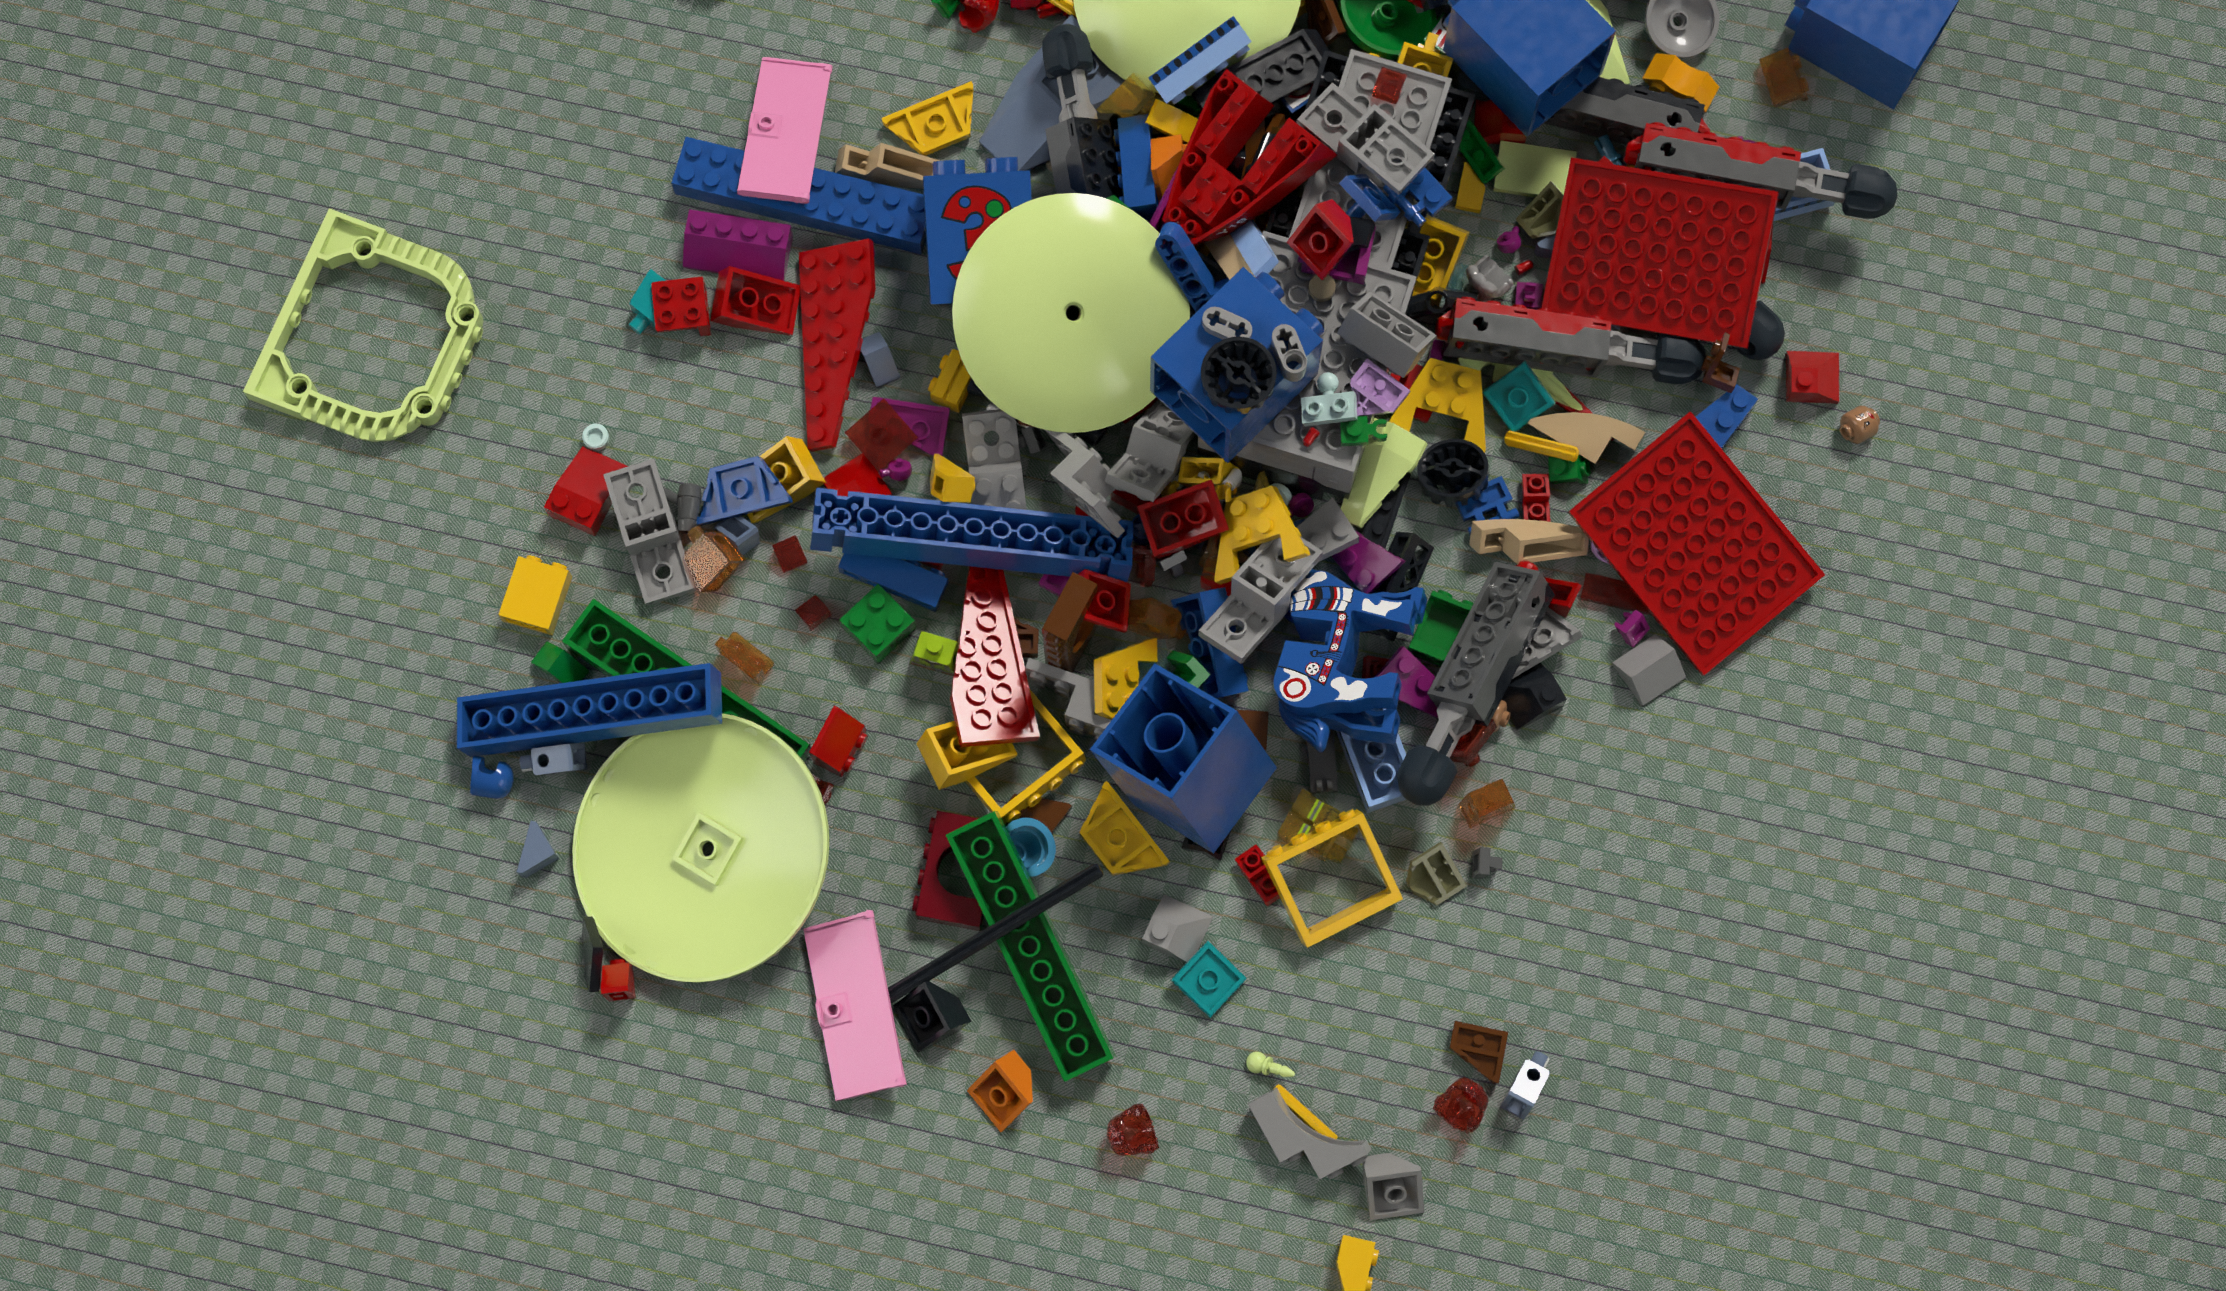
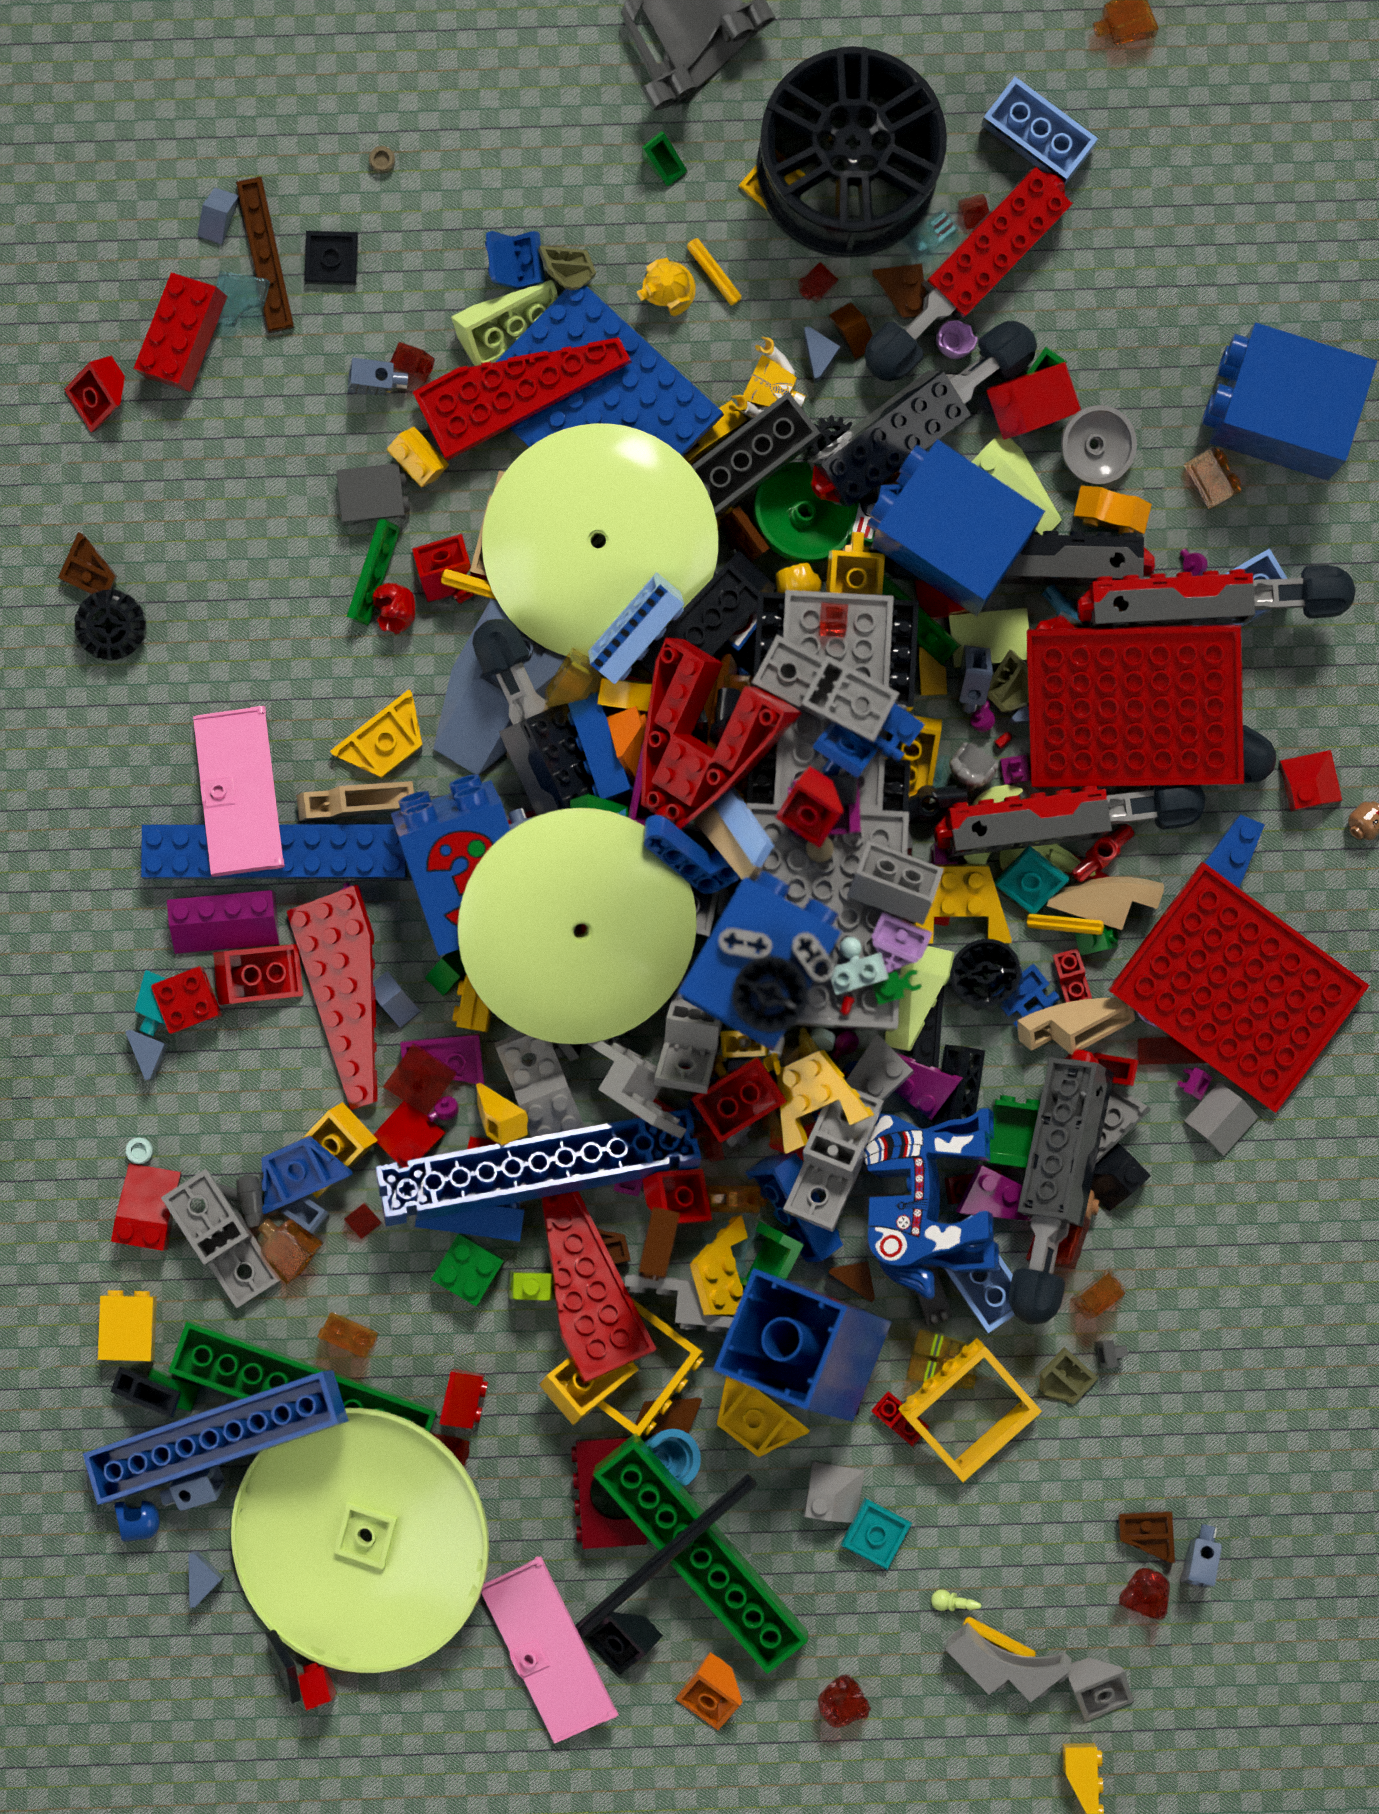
camera: 15 degrees left, 10 degrees up
(535, 654) = (146, 1391): none -> black slope
(631, 347) = (147, 1052): none -> sand blue slope
(813, 612) = (401, 1272): clear red slope -> none
(935, 344) = (447, 972): none -> green slope
(1513, 193) = (974, 677): none -> sand blue torso
(1588, 397) = (1095, 860): none -> red axle
(1718, 372) = (1221, 809): reddish brown bracket -> none

